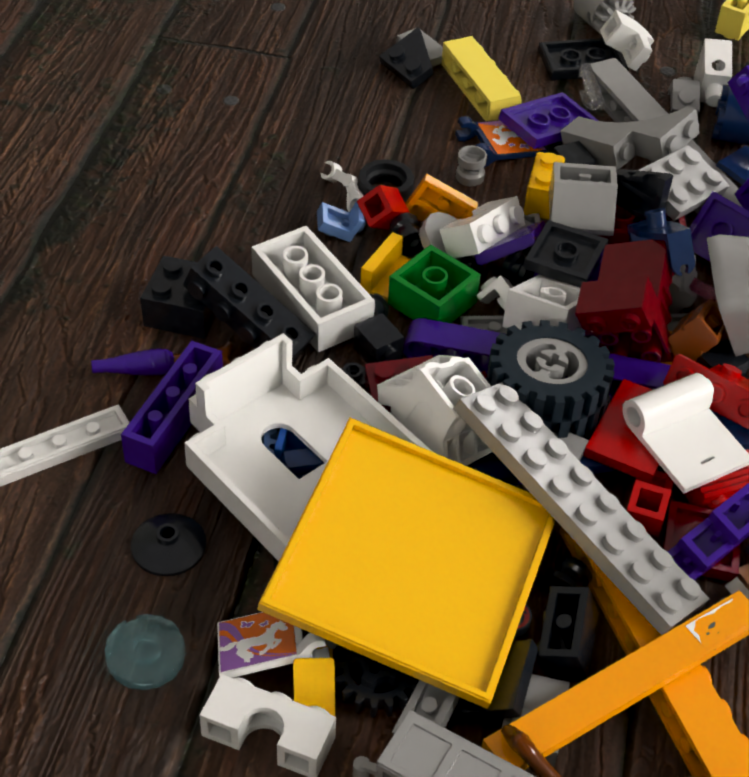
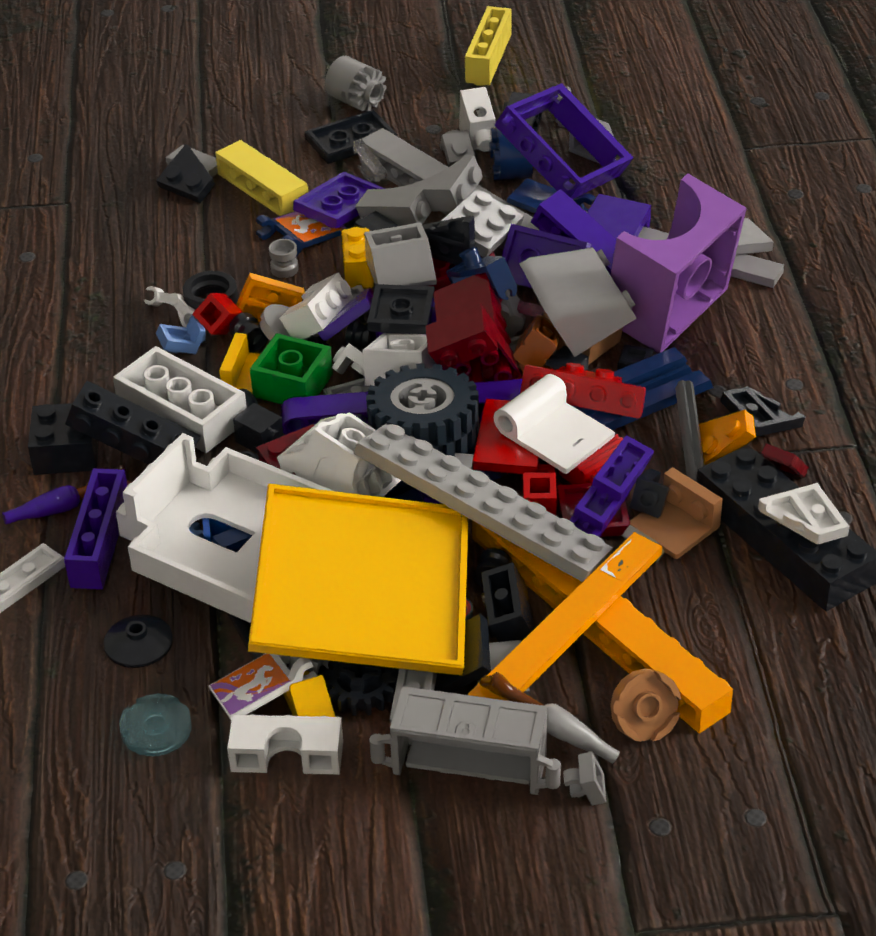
camera: 15 degrees left, 5 degrees down
(628, 38) = (388, 107): white brick -> none

